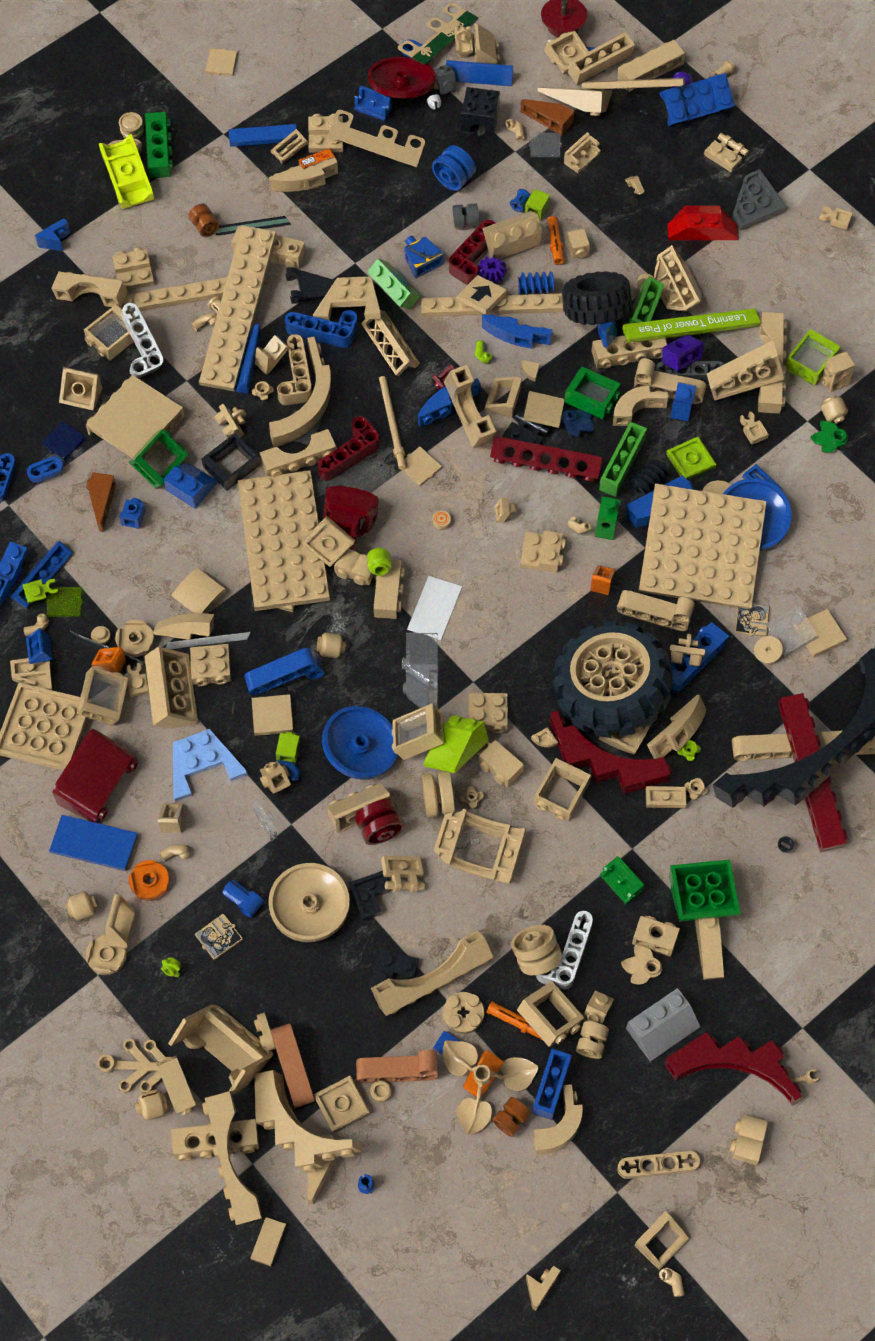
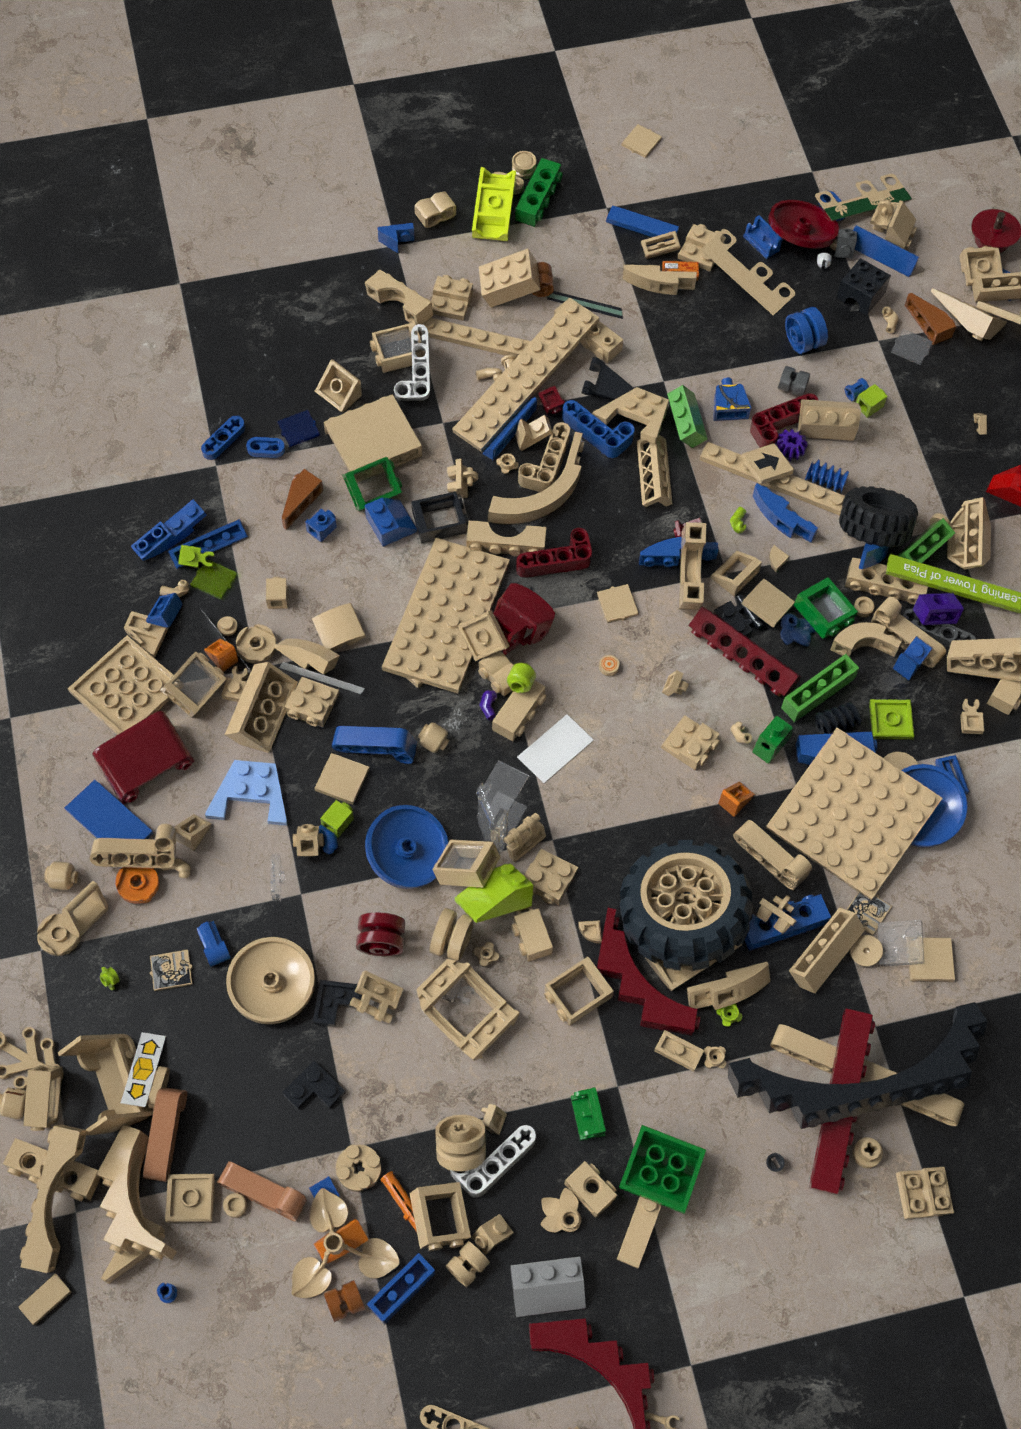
camera: 25 degrees right, 0 degrees up
(75, 198) = (435, 209): none -> tan brick
(128, 588) = (276, 593): none -> tan brick
(138, 854) = (136, 852): none -> tan beam
(177, 230) = (509, 278): none -> tan brick
(245, 1023) = (143, 1070): none -> sticker
(271, 321) = (551, 400): none -> dark red bracket
(343, 811) = (352, 906): tan slope -> none
(357, 597) = (486, 702): none -> dark purple arm
(398, 449) = (604, 579): tan bar -> none
(452, 689) = (524, 837): none -> tan plate
(468, 954) = (302, 1114): tan arch -> none
(549, 918) = (493, 1118): none -> tan tile
(557, 255) = (865, 458): orange pin -> none
(557, 1137) = (387, 1345): tan arch -> none
(578, 243) = (891, 456): tan brick -> none
(582, 153) = (943, 369): tan hinge -> none
(621, 376) = (864, 606): none -> tan tile
(739, 663) = (827, 950): none -> tan brick
(850, 808) = (863, 1158): none -> tan piece

